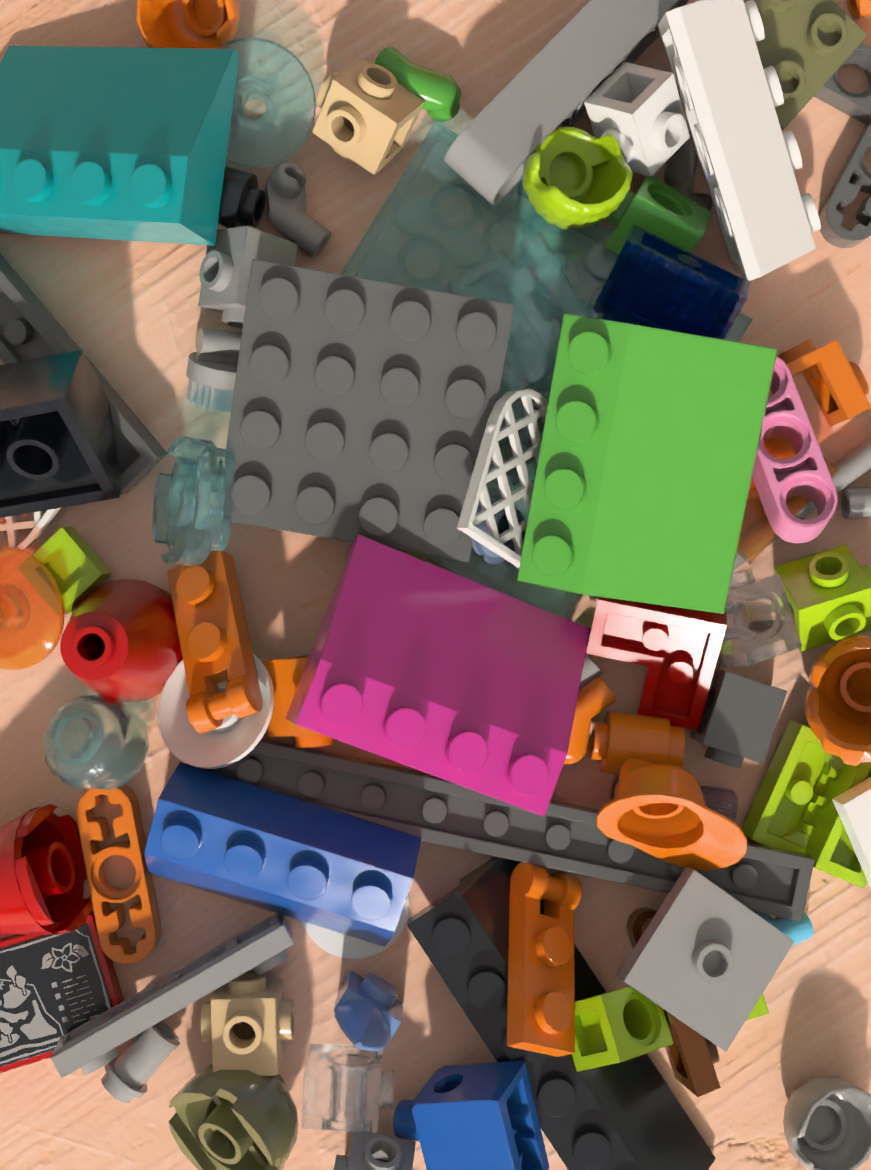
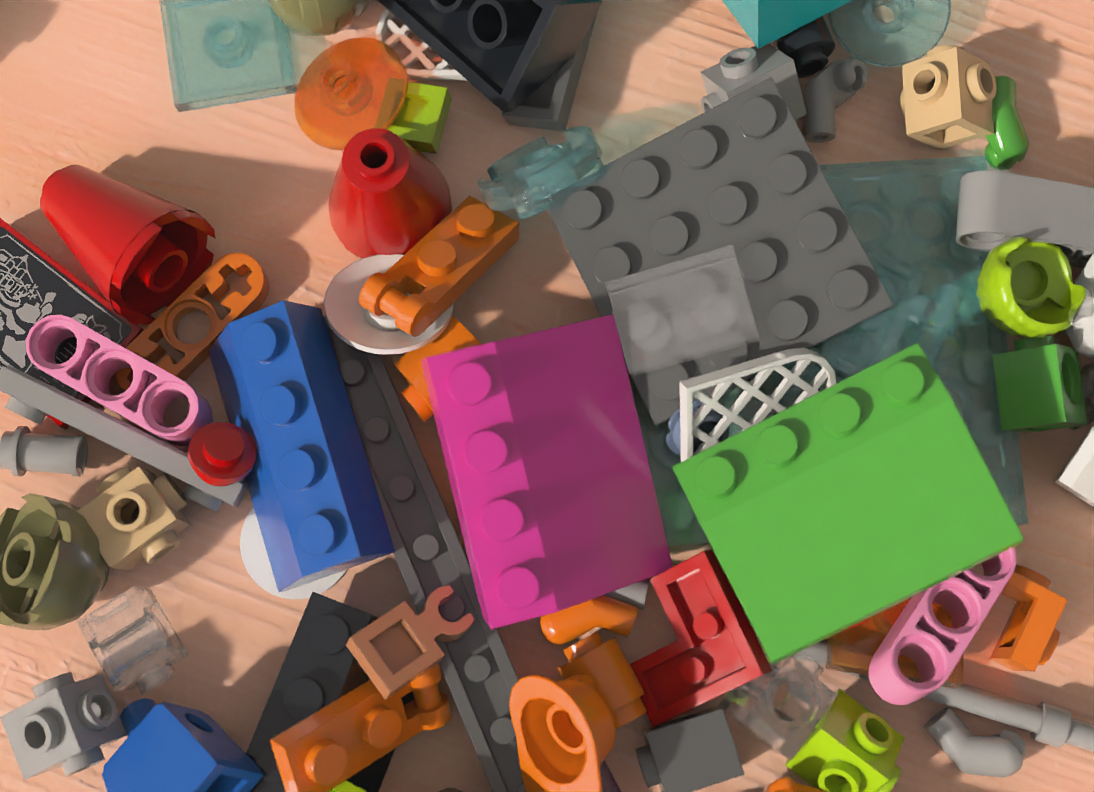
camera: 55 degrees right, 10 degrees down
(95, 743) = (288, 234): clear light blue hair -> none
(106, 988) = (95, 364): none -> bright pink beam
(213, 369) = (657, 116): light grey piece -> none
(247, 926) = (221, 453): none -> red plate
(368, 1011) = (216, 611): medium blue plate -> none
(396, 478) = (682, 311): none -> clear plate
(502, 888) = (403, 645): none -> nougat plate
(670, 289) = (1005, 423): clear blue brick -> none

